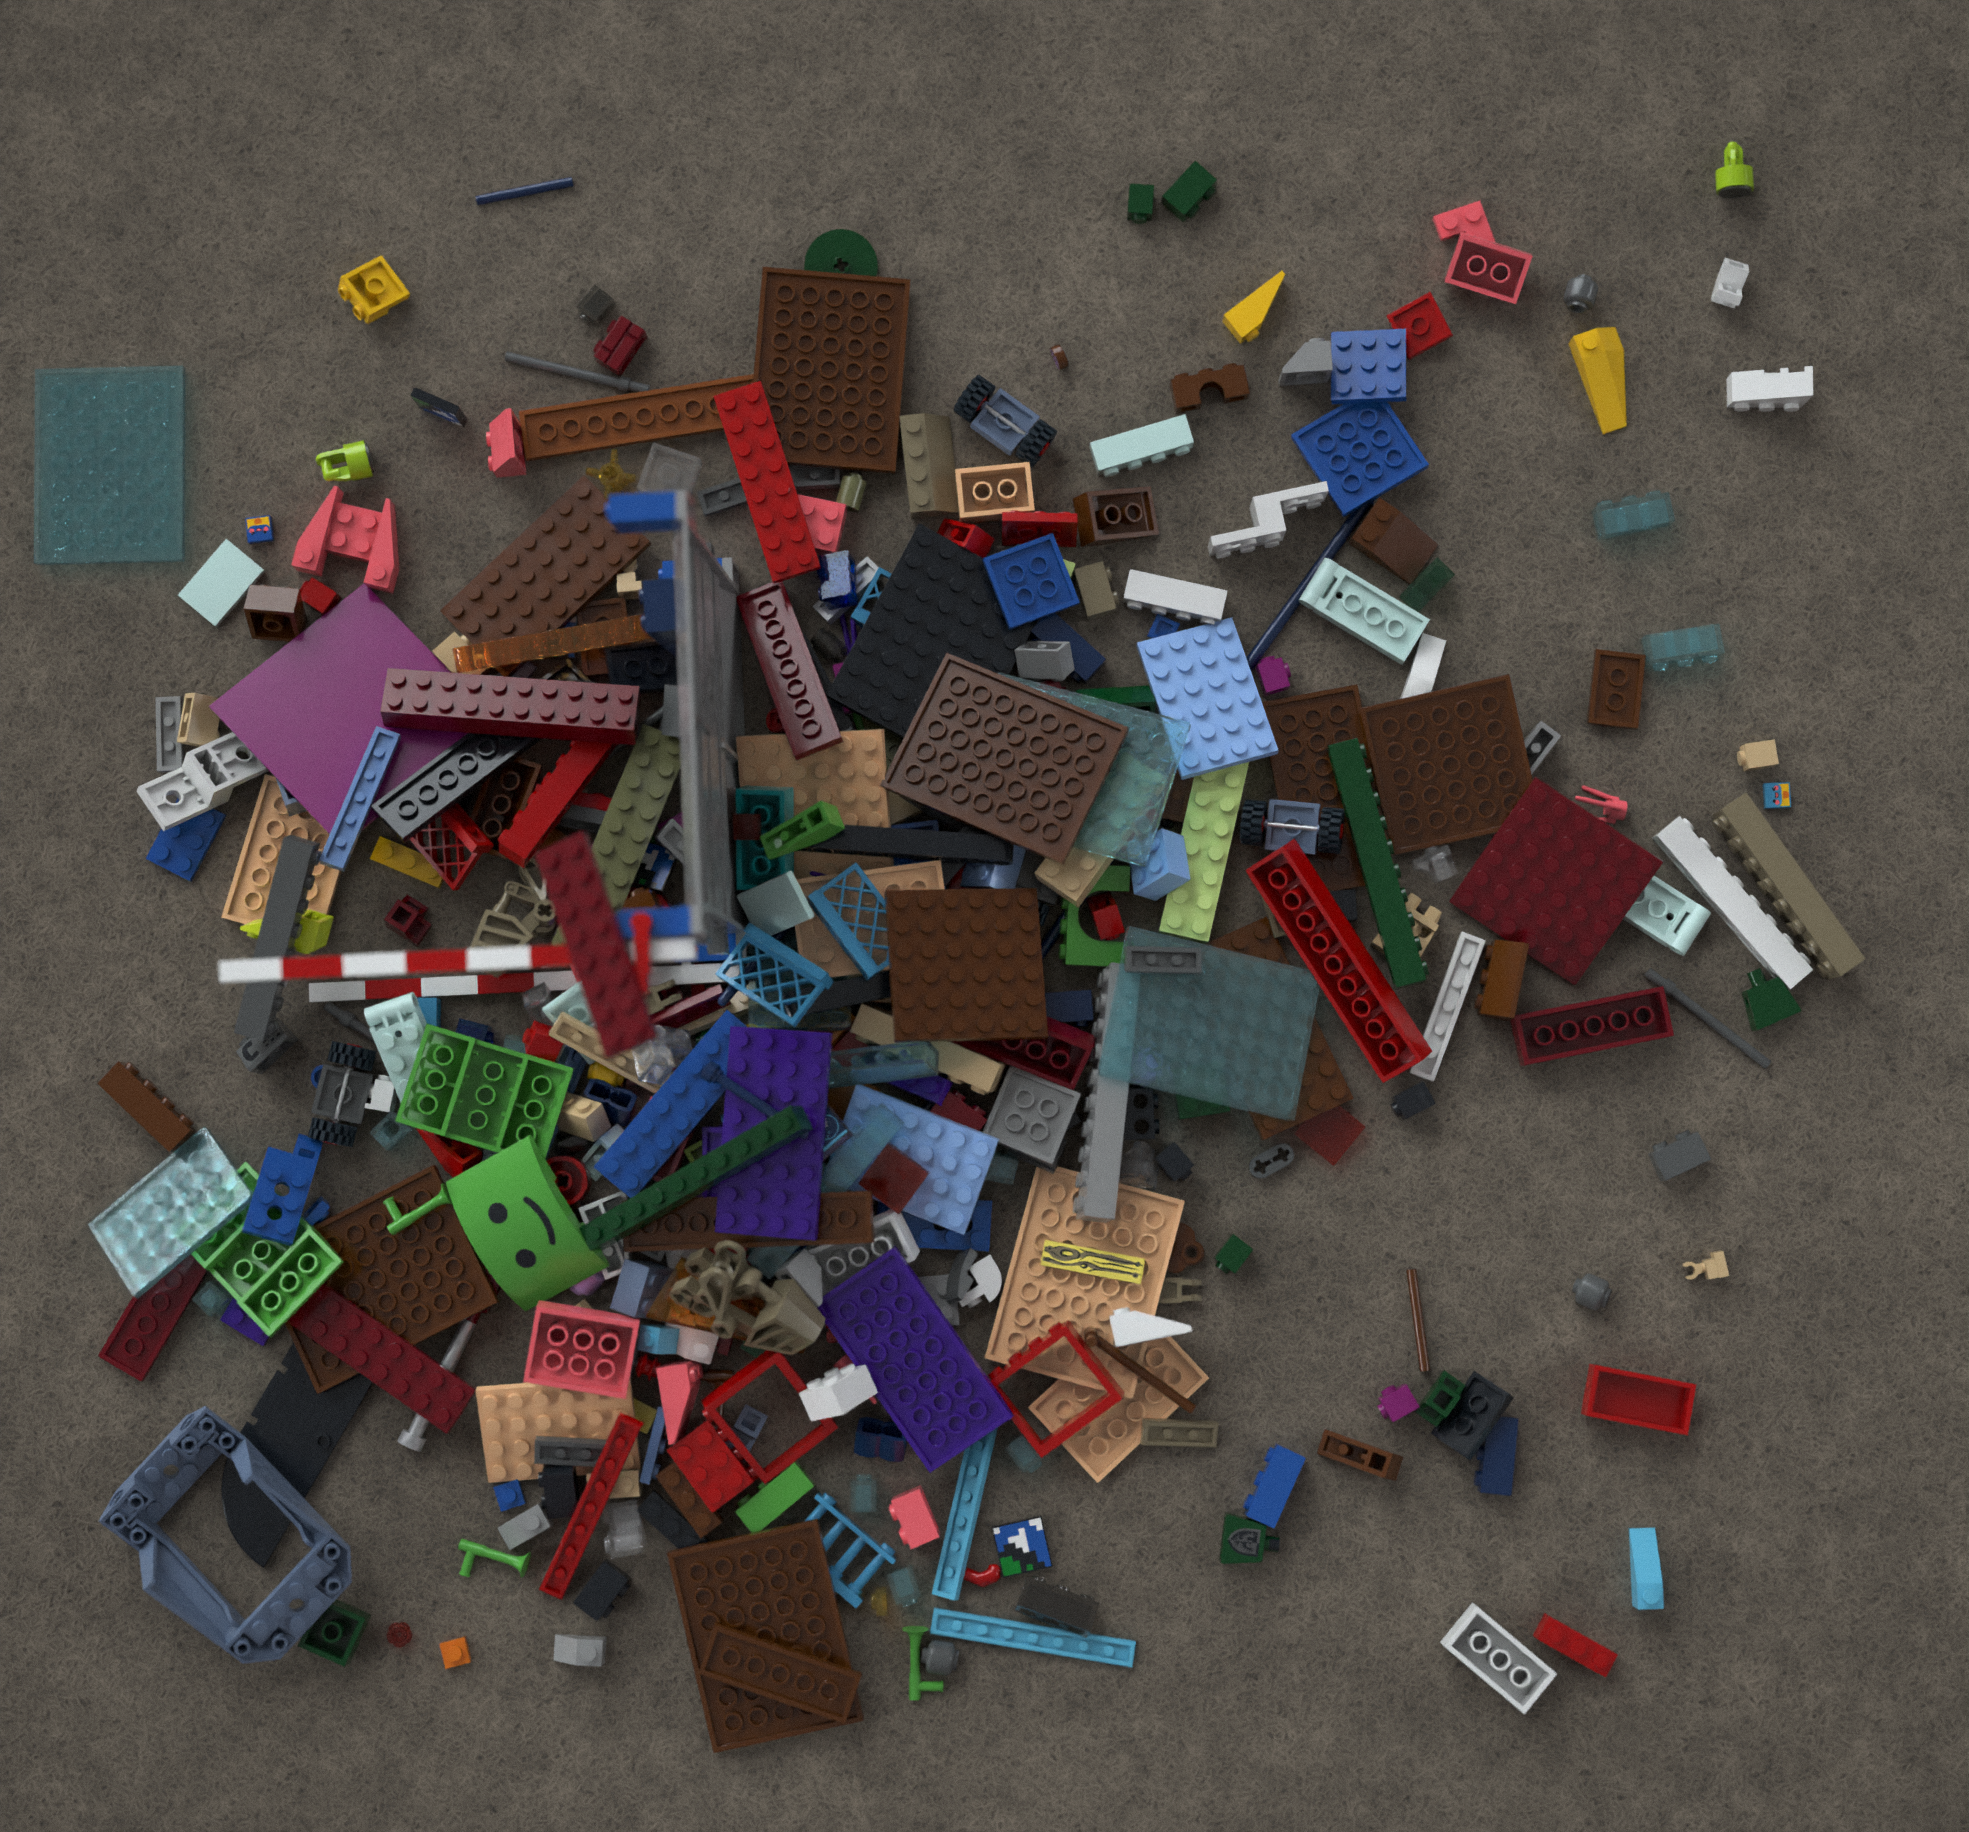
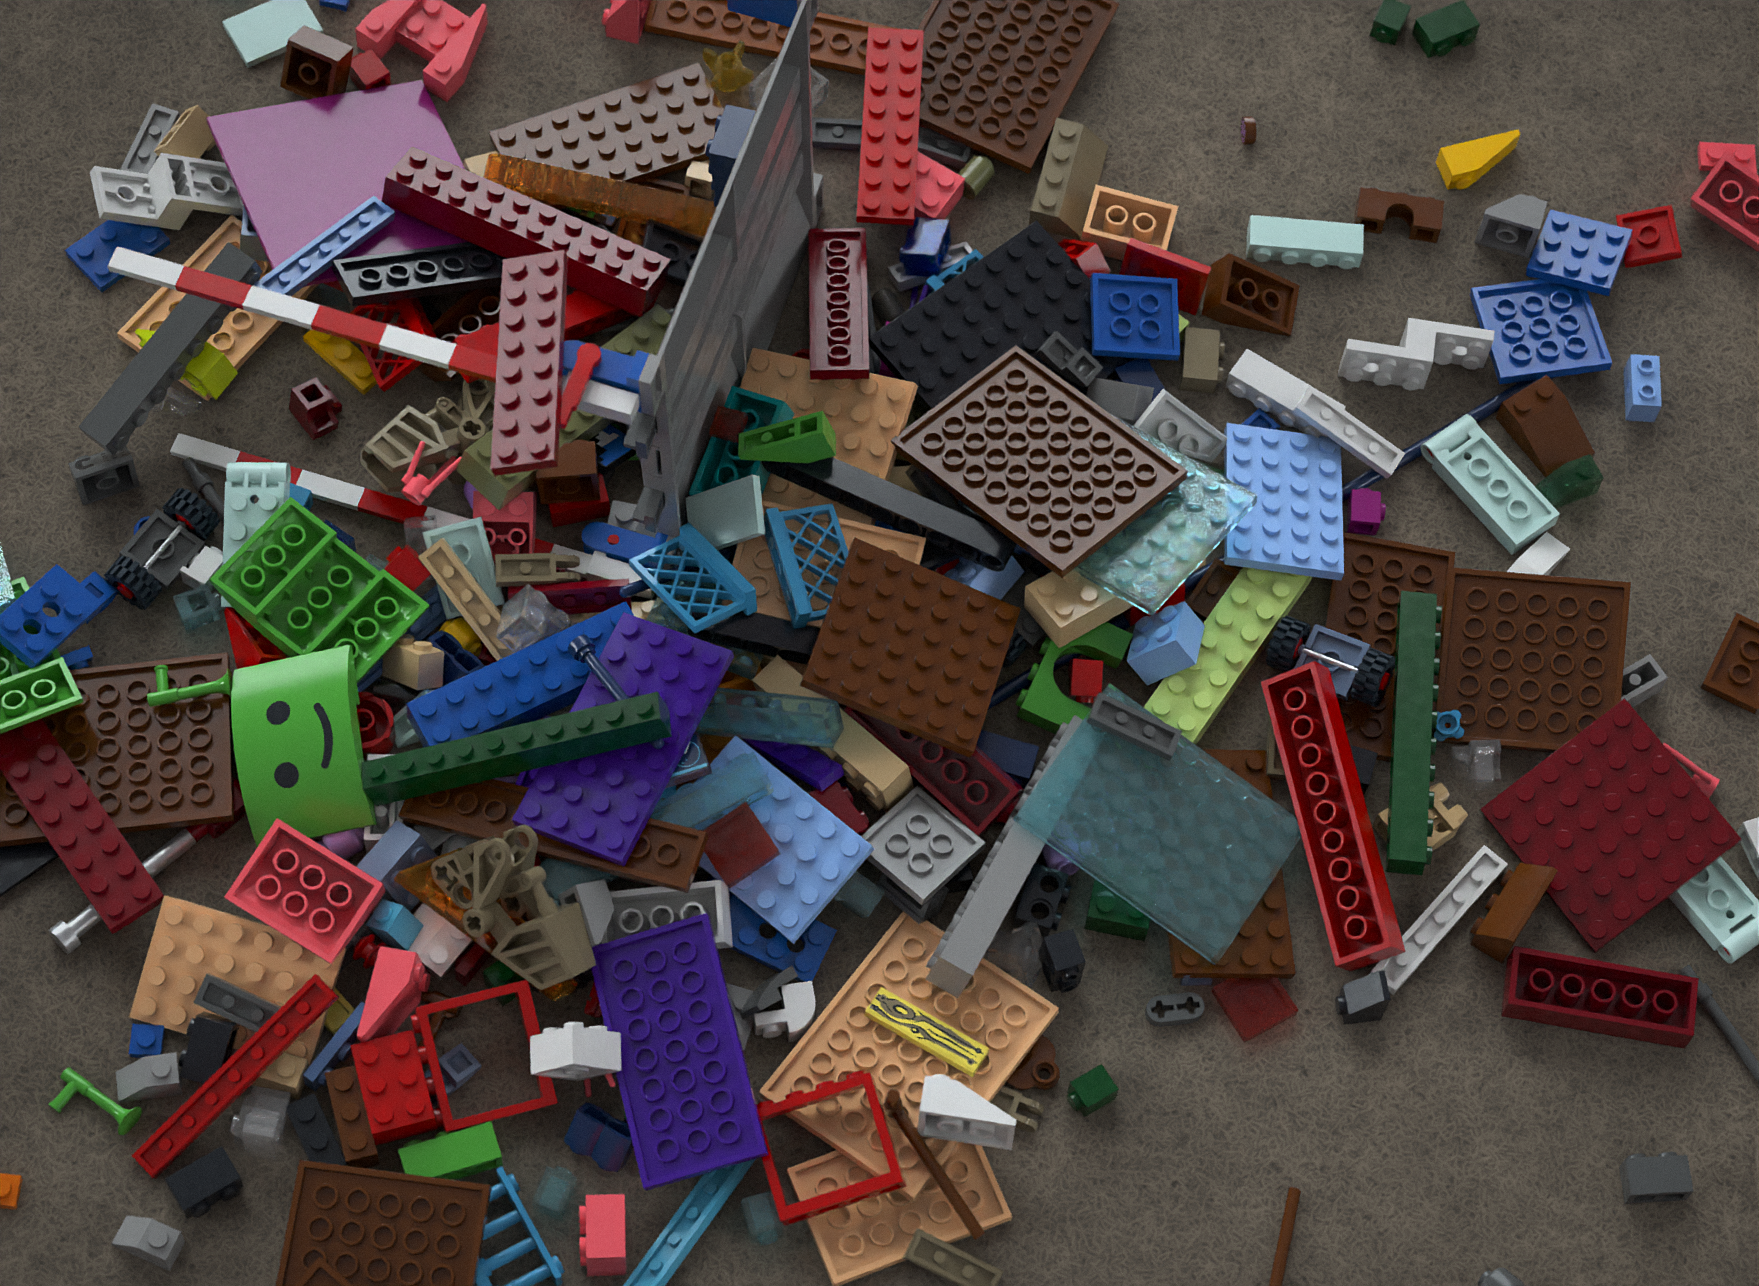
camera: 10 degrees right, 20 degrees down
(525, 977) = (419, 487): none -> coral plant
(993, 644) = (1066, 360): none -> dark grey slope
(1004, 421) = (1166, 164): plate -> none
(1100, 667) = (1181, 428): none -> white wing
(1238, 615) = (1348, 432): none -> white plate
(1408, 845) = (1453, 718): none -> dark azure plate
(1459, 473) = (1642, 388): none -> light blue brick

